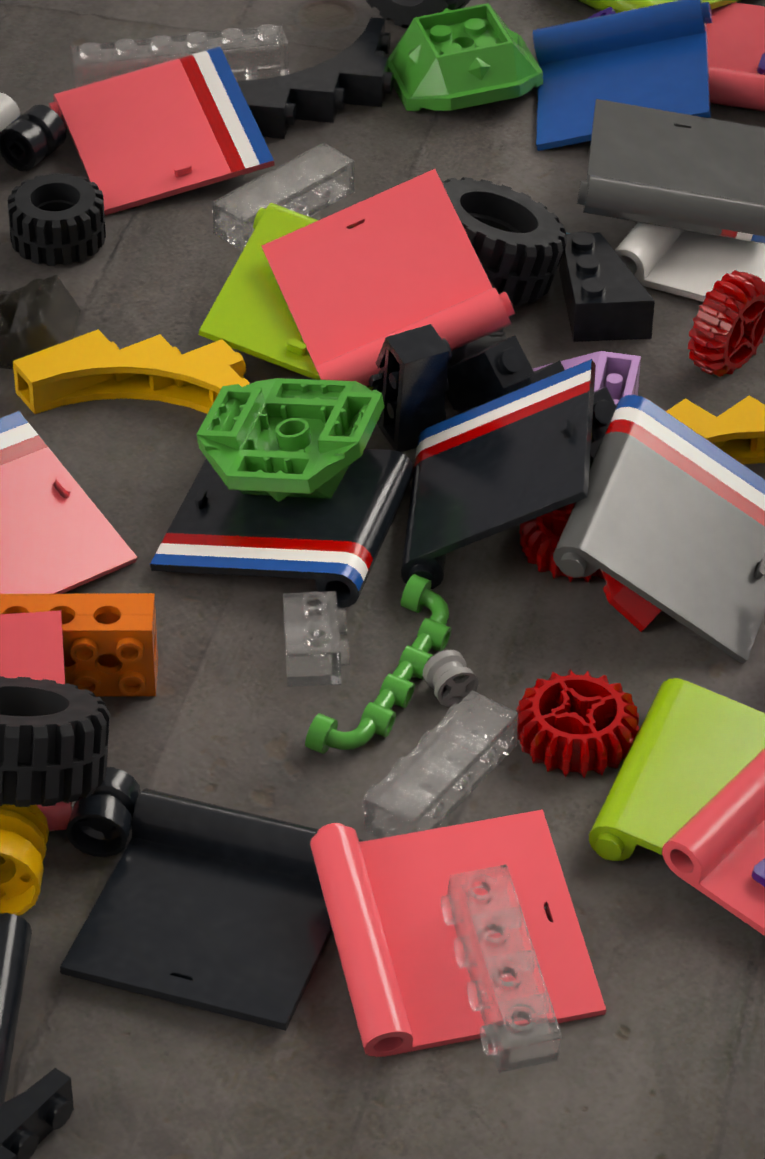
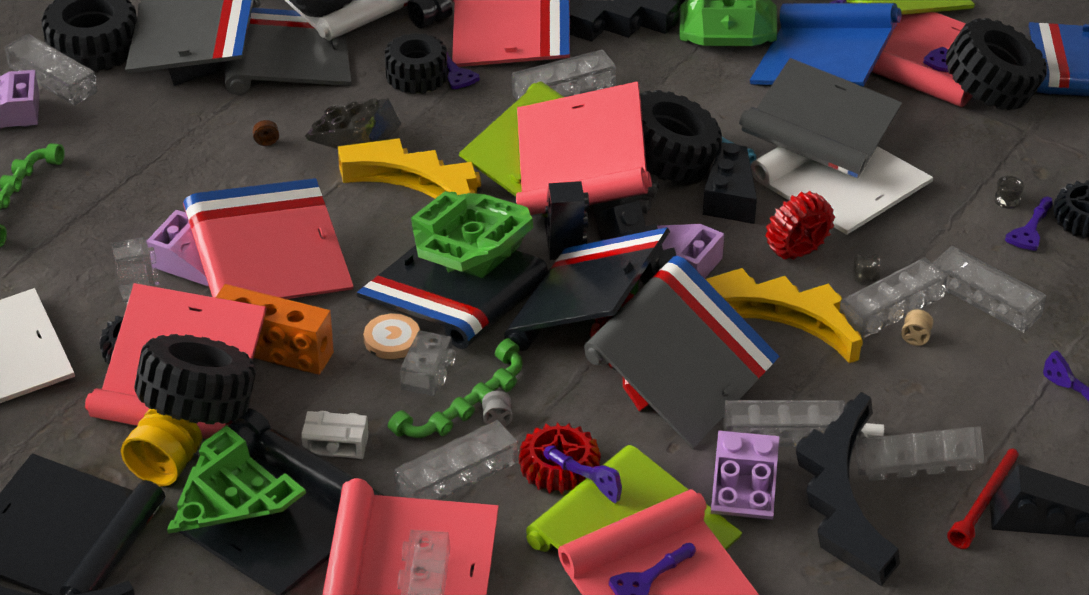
camera: 20 degrees right, 0 degrees up
(127, 227) = (460, 77): none -> dark purple piece
(139, 892) = (230, 486): none -> bright green wedge
(235, 613) = (390, 335): none -> light nougat tile
(238, 772) = (335, 434): none -> white brick
(657, 729) = (604, 477): none -> dark purple piece

